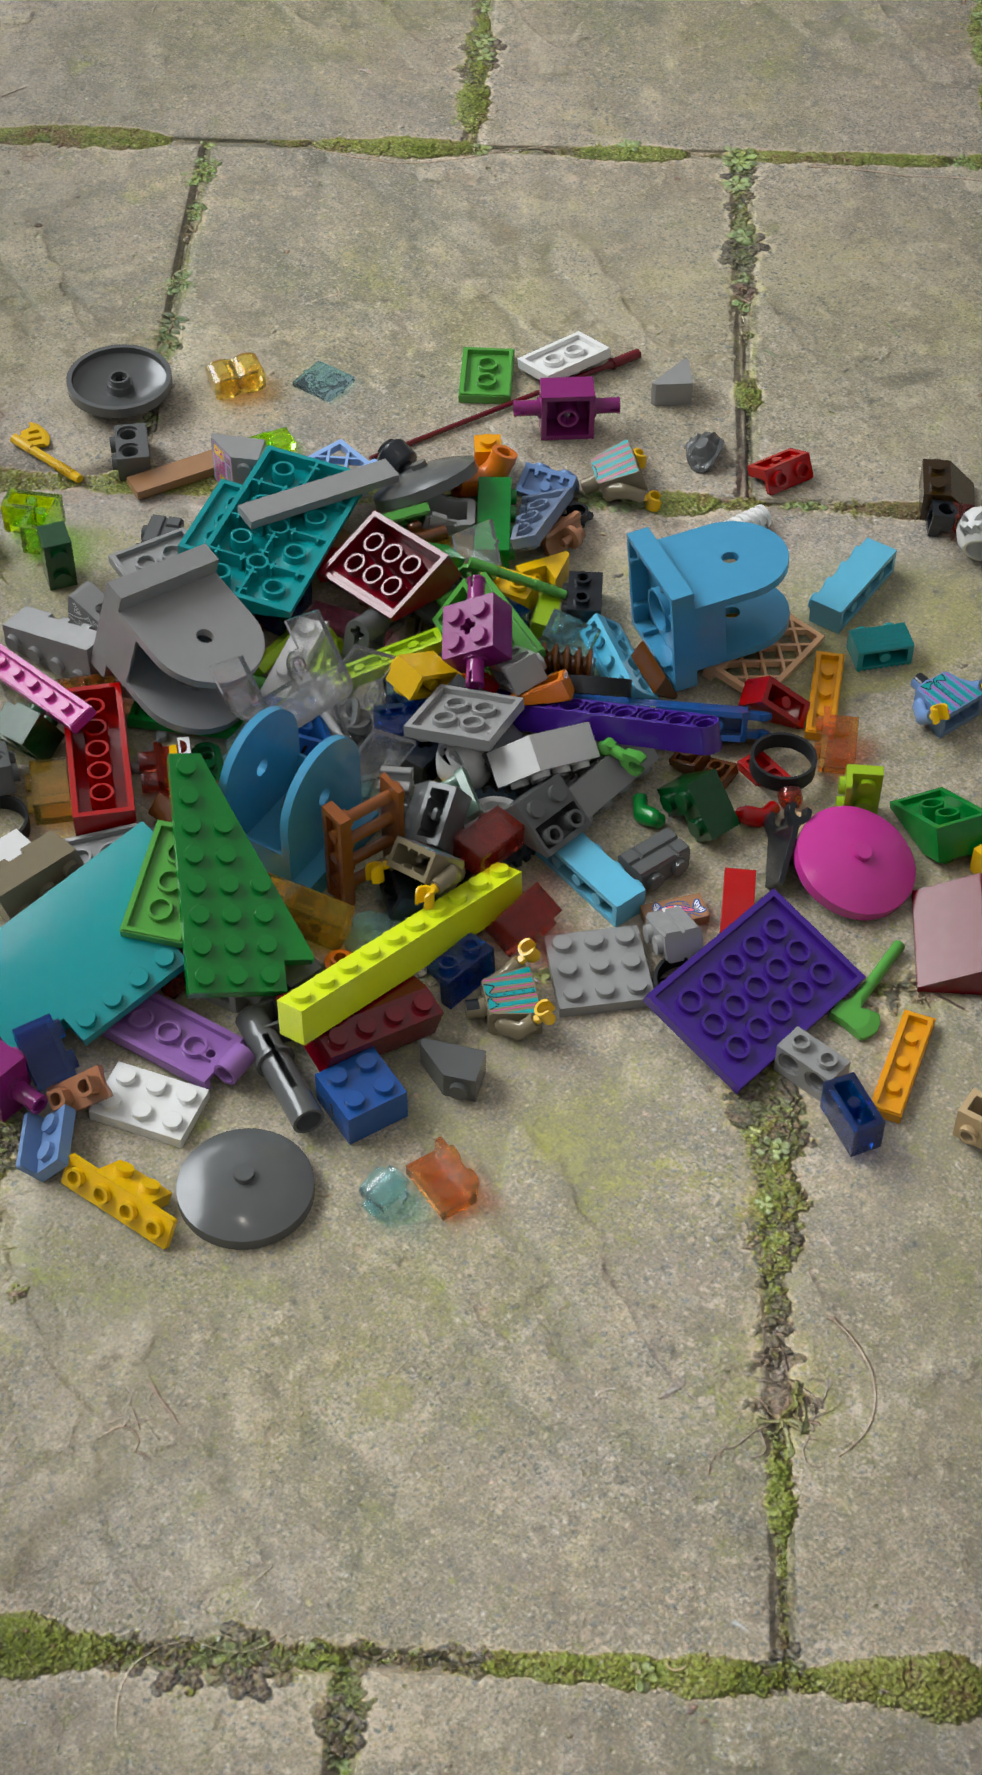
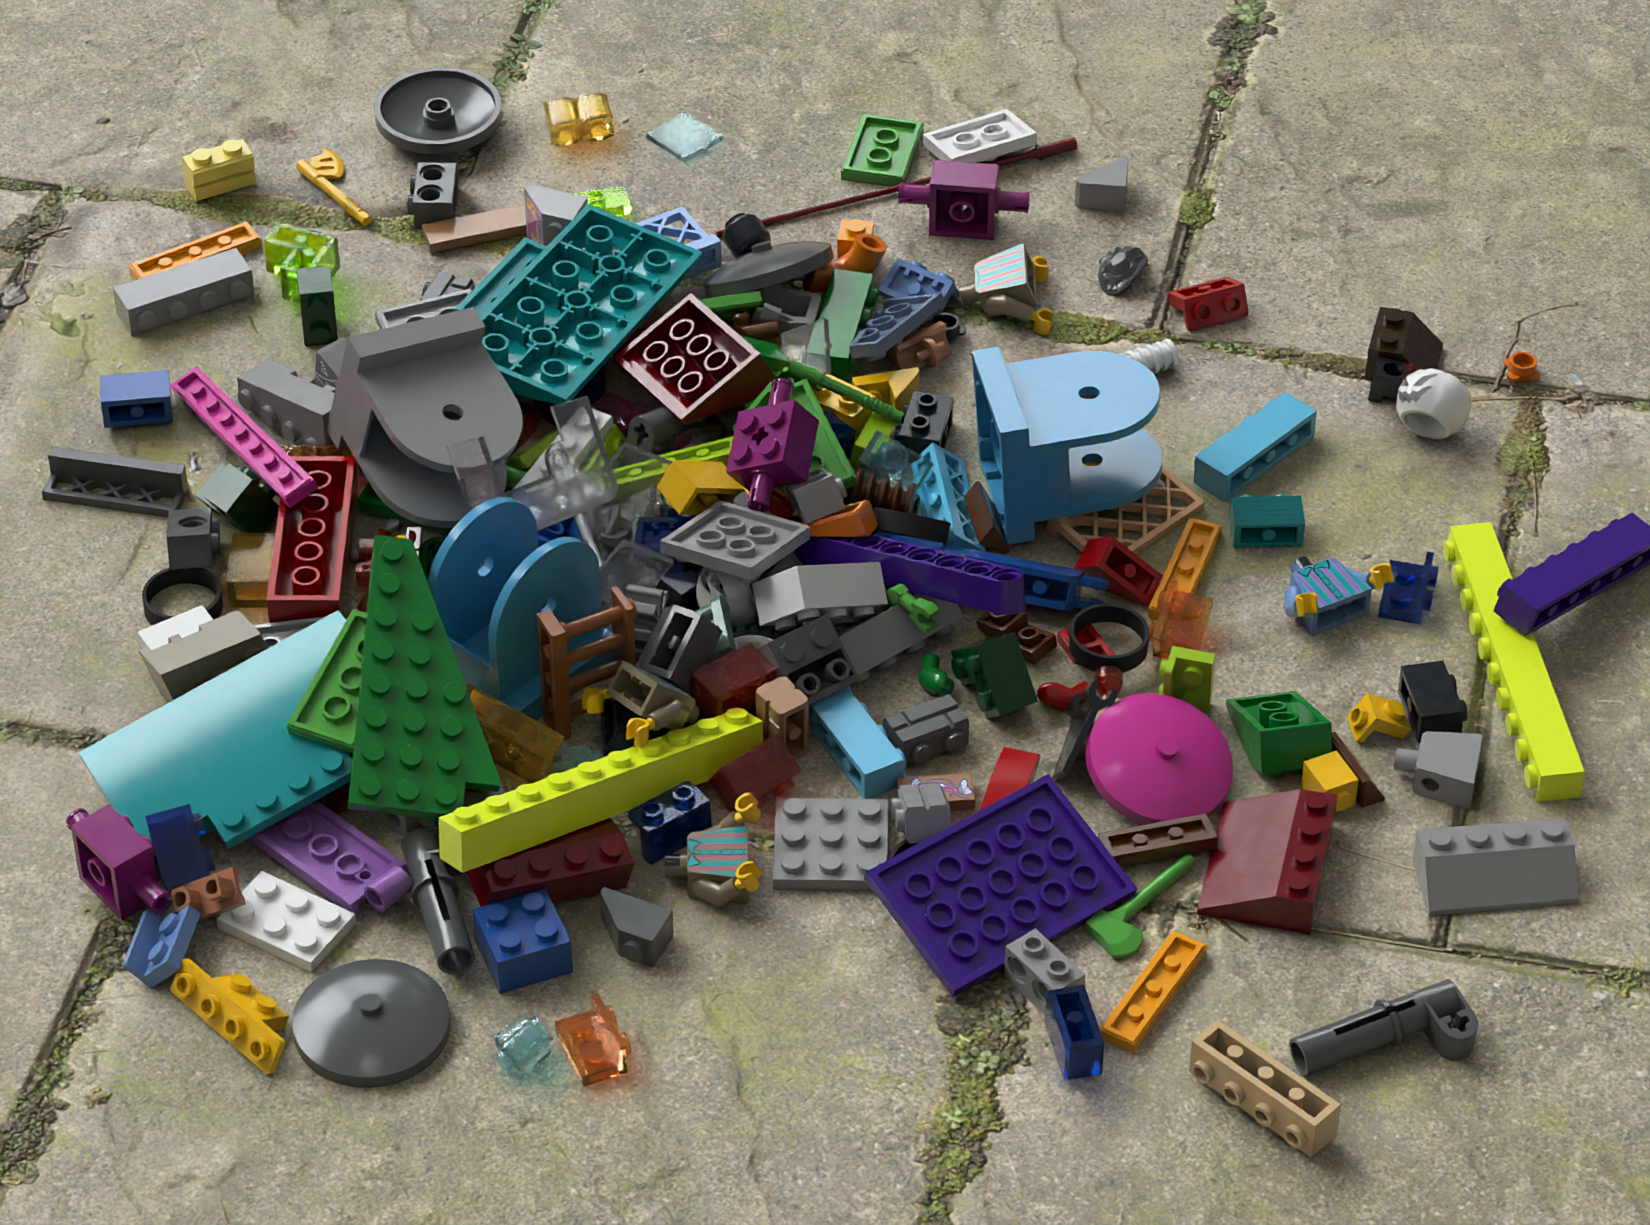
camera: 10 degrees right, 5 degrees down
(318, 493) = (632, 267): light grey tile -> none
(537, 862) = (784, 713): none -> medium nougat brick
(873, 930) = (1160, 840): none -> reddish brown plate

